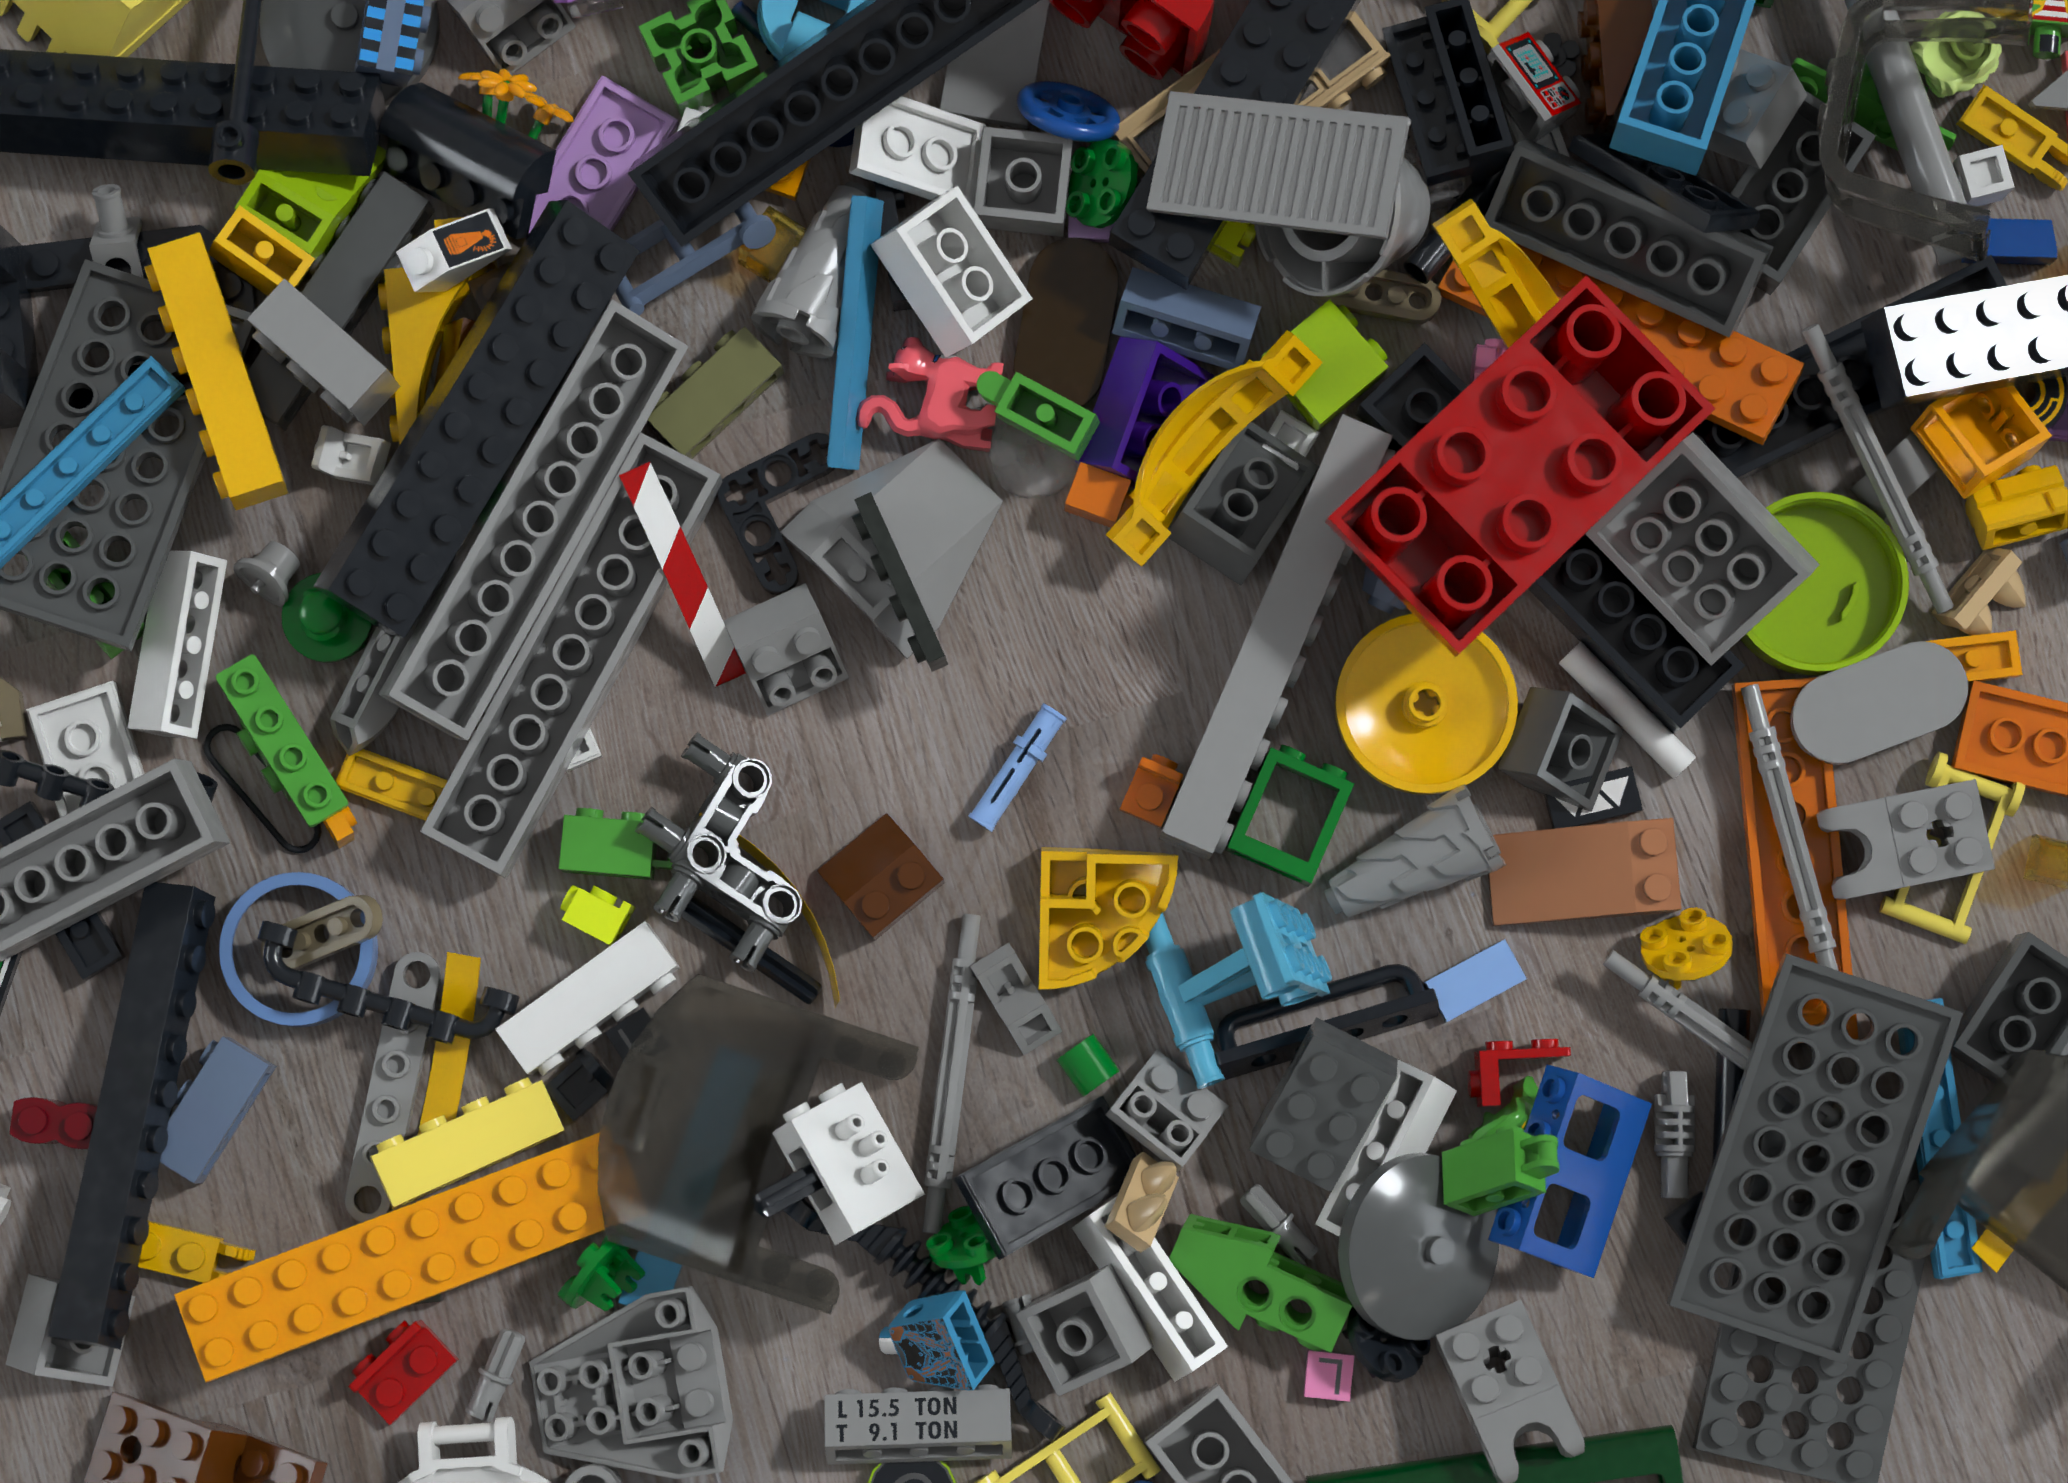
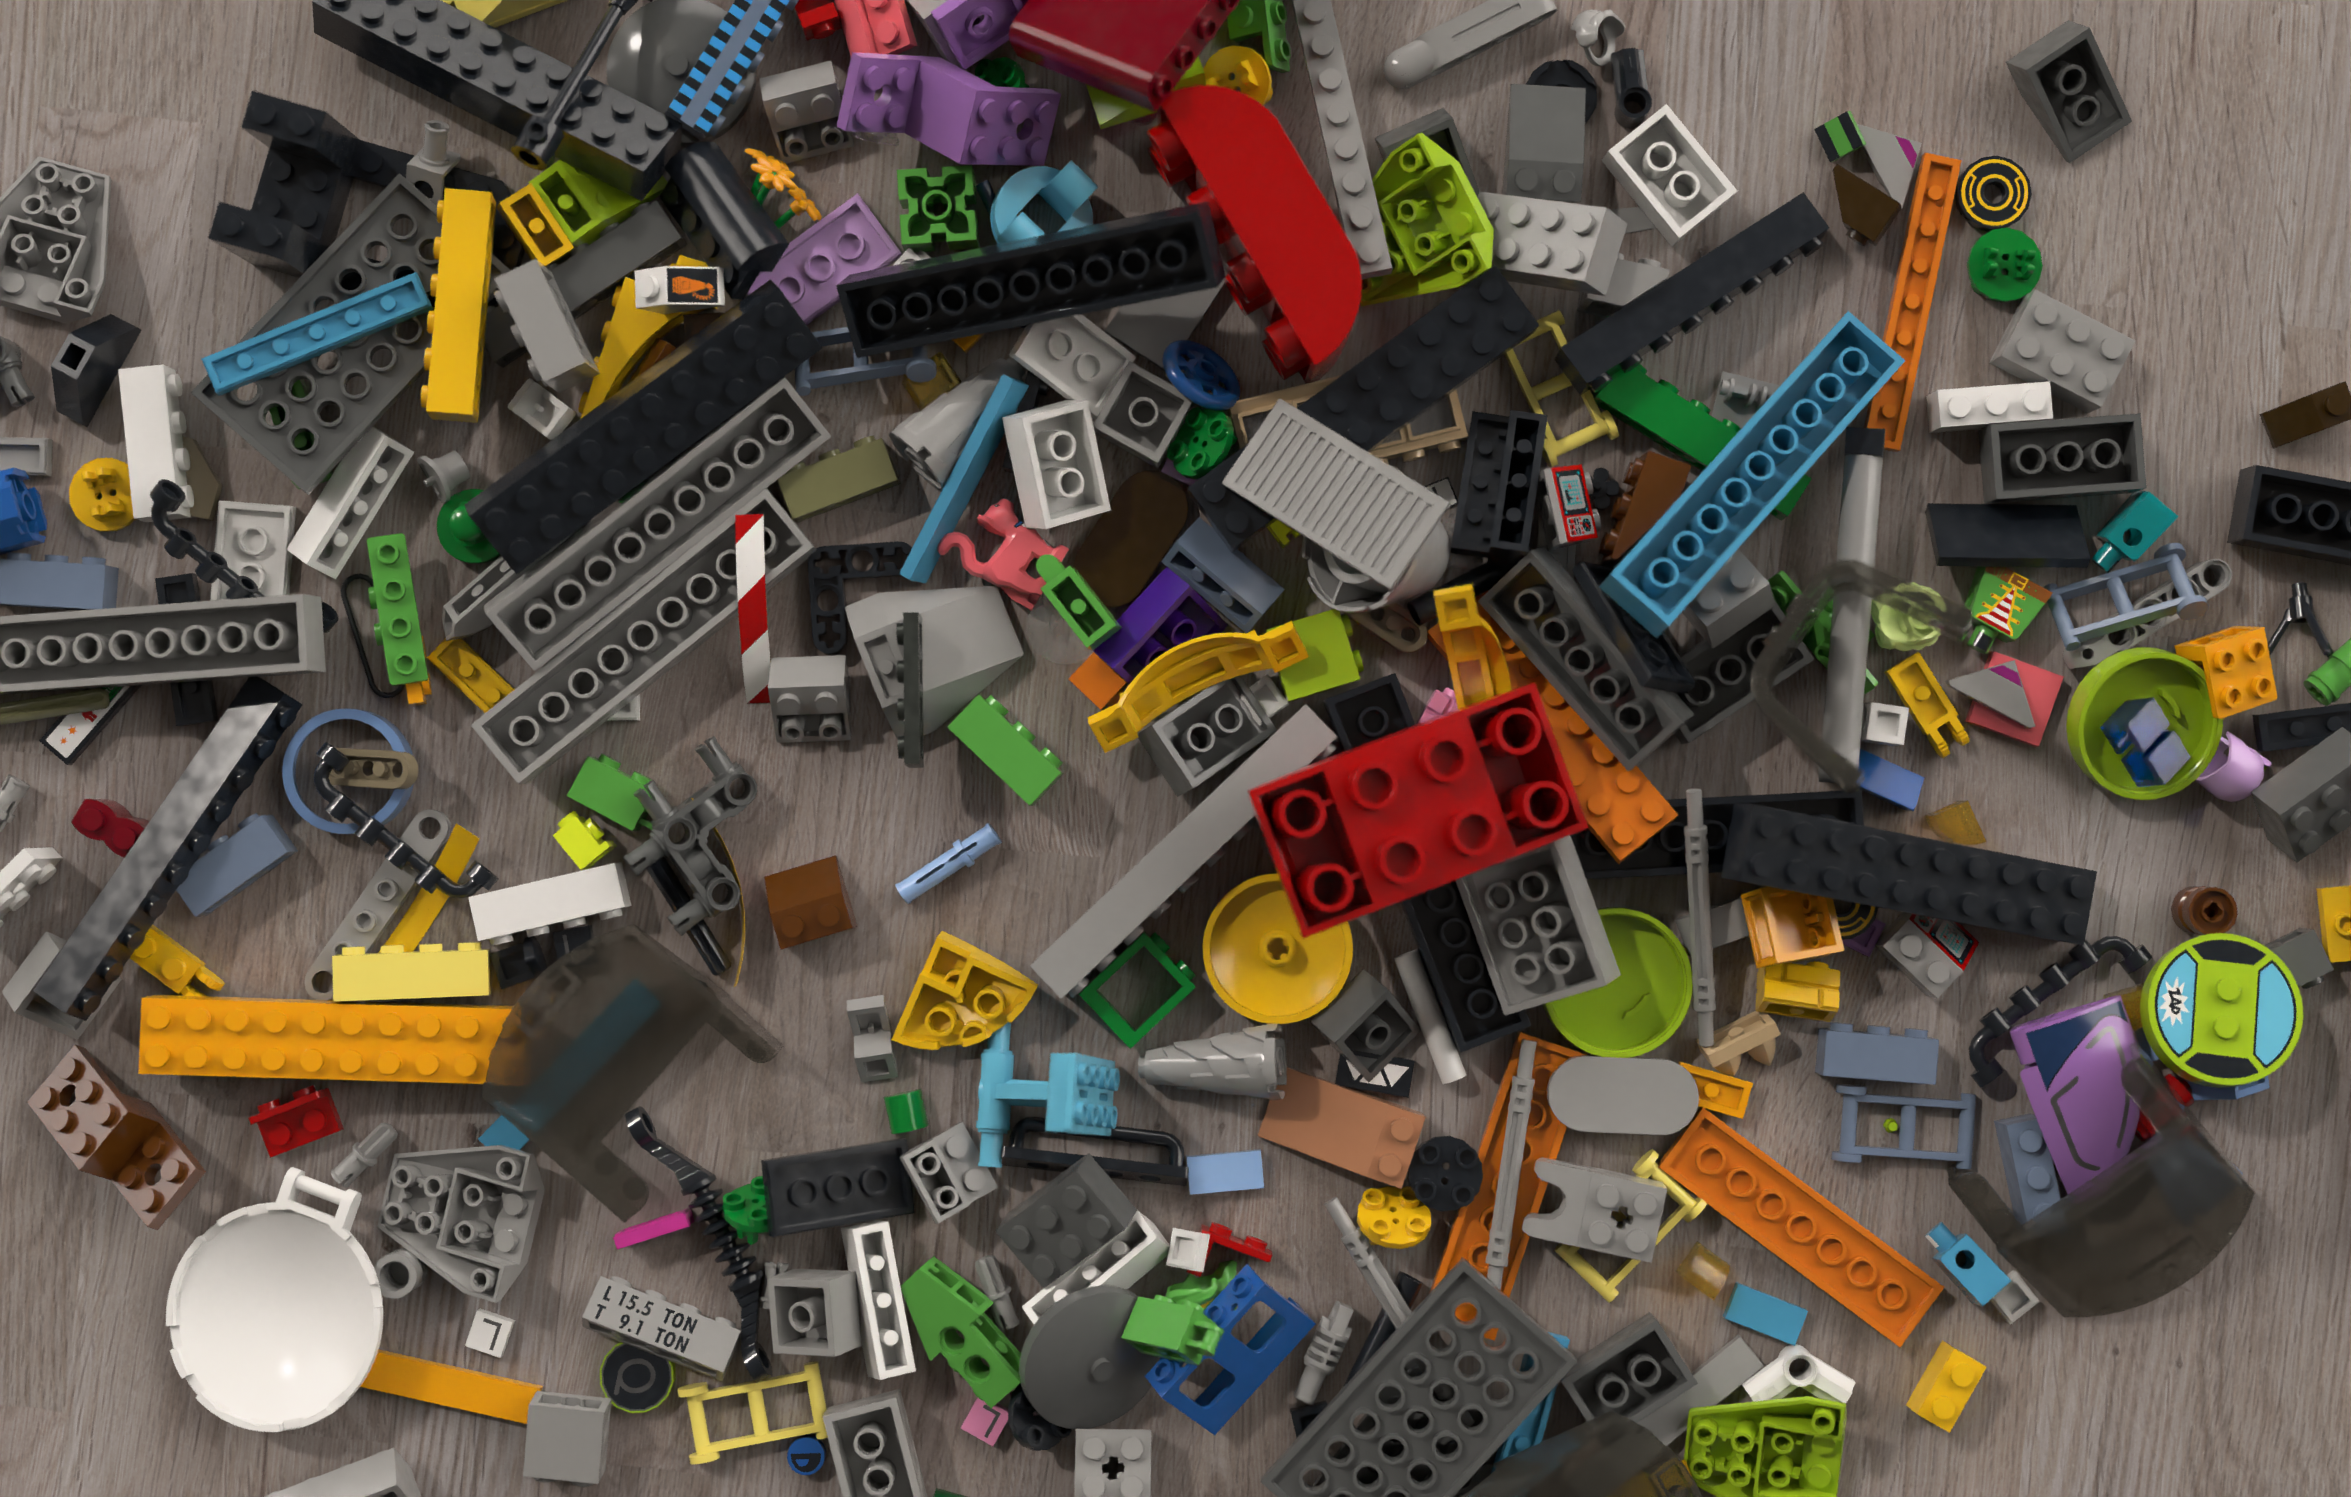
camera: 25 degrees right, 5 degrees up
(602, 1272) = (467, 1113): green plate -> none
(841, 1163) = (686, 1110): white piece -> none
(860, 1317) = (653, 1228): none -> dark pink tile
(939, 1341) = (702, 1274): dark azure torso -> none
(951, 1074) = (799, 1074): light grey axle -> none
(1030, 608) = (1007, 748): none -> bright green brick
(1142, 1201) = (897, 1235): tan tile -> none
(1152, 790) = (1043, 924): orange bracket -> none
(1473, 1079) = (1188, 1250): none -> white tile
(1742, 867) = (1463, 1173): none -> black plate

